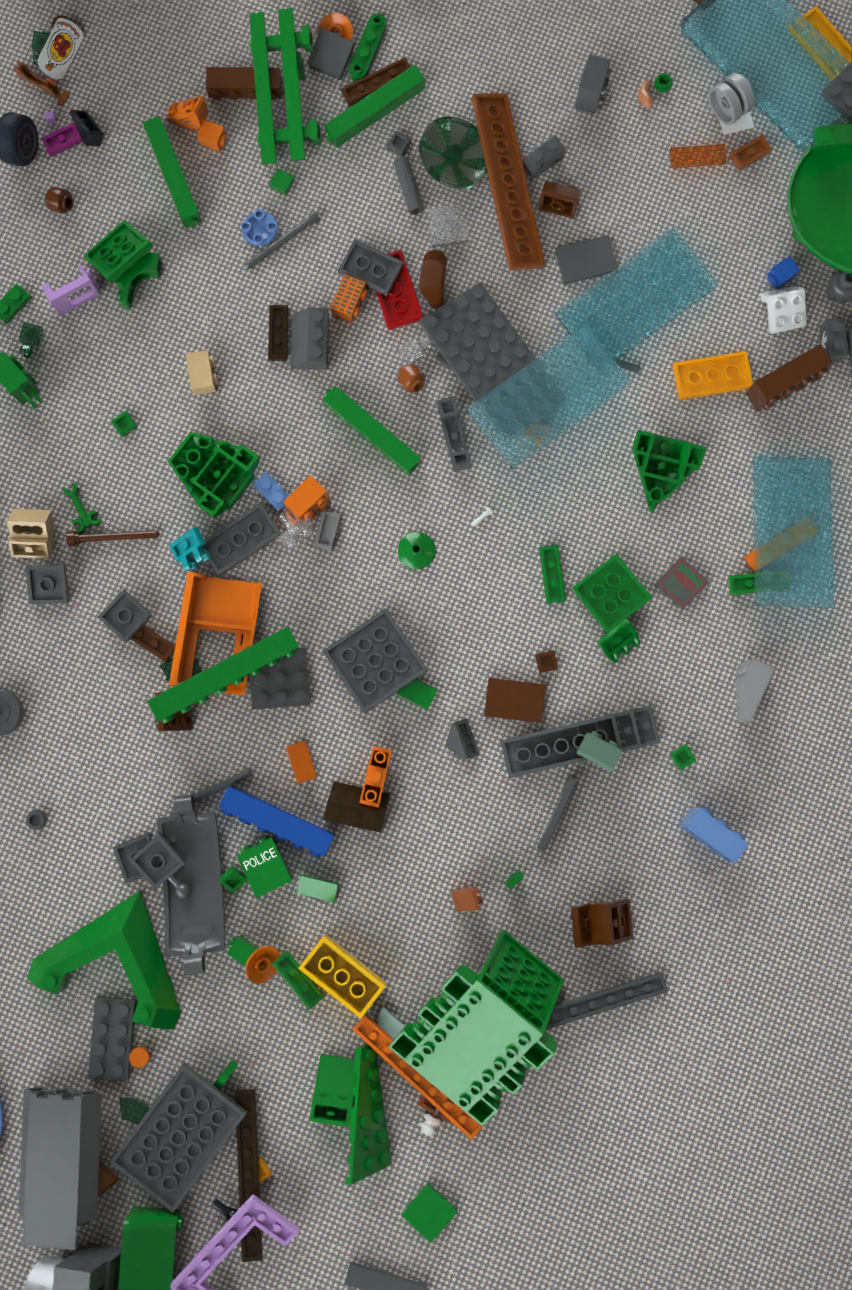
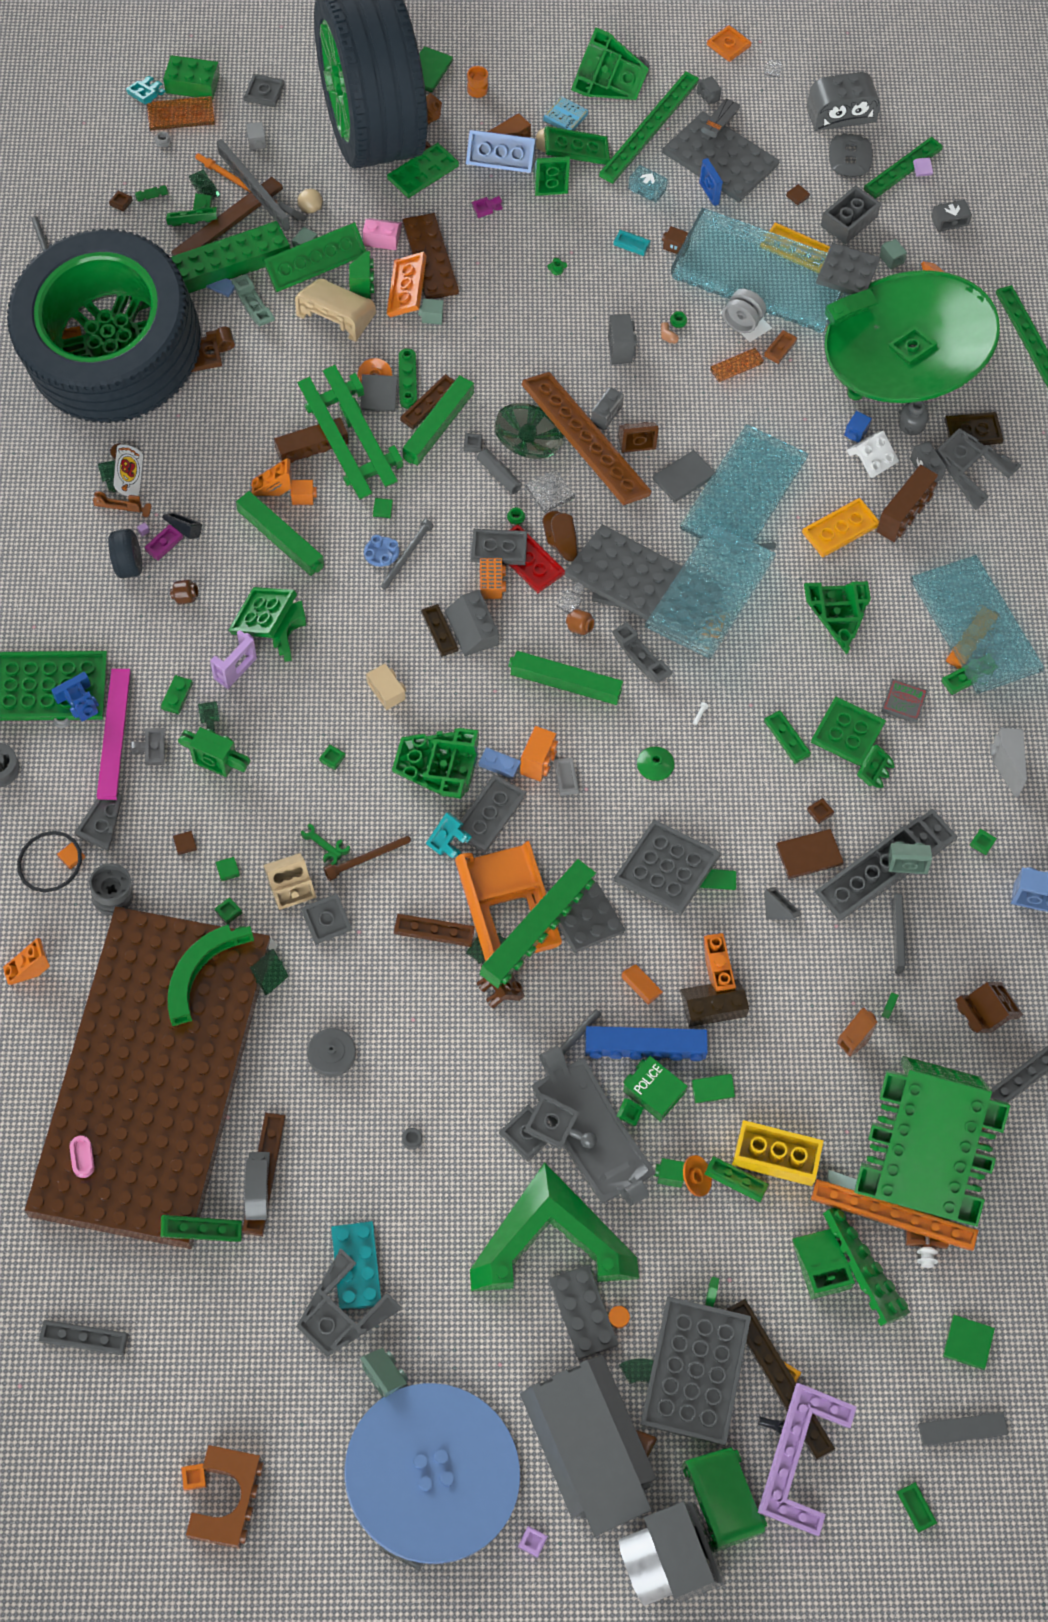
camera: 30 degrees left, 20 degrees down
(125, 616) = (415, 917): dark grey tile -> none
(294, 530) = (539, 783): clear plate -> none
(400, 236) = (516, 512): none -> green plate

